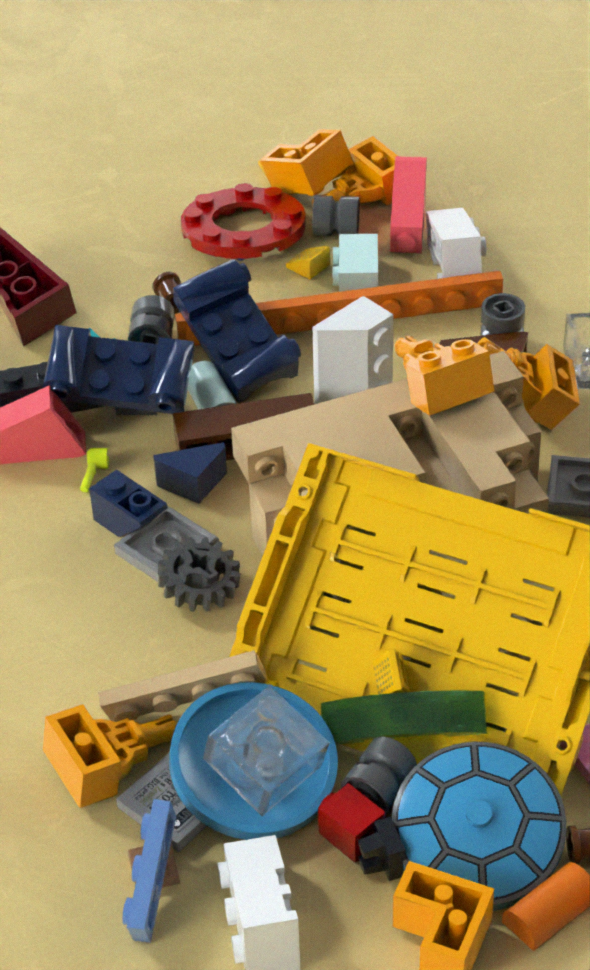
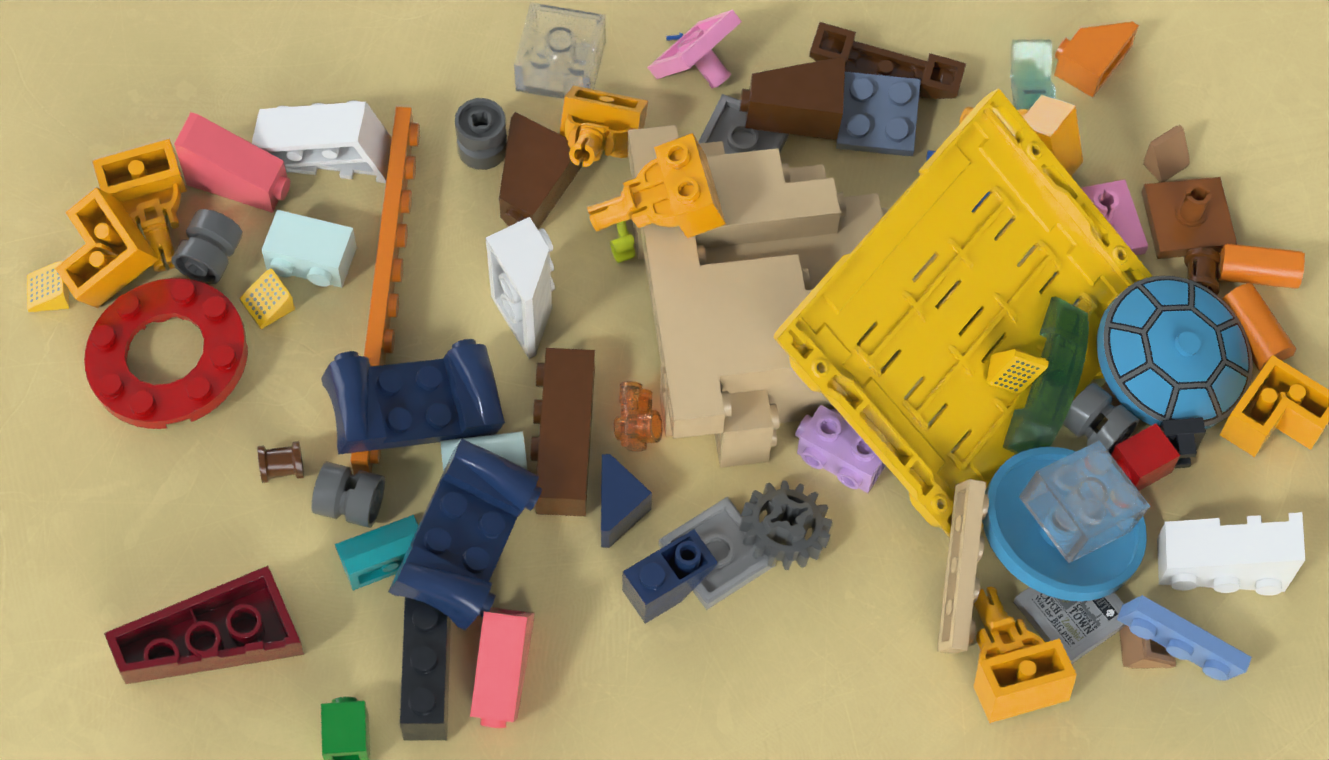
camera: 80 degrees left, 20 degrees up
(96, 459) = (557, 603): neon yellow hand -> none

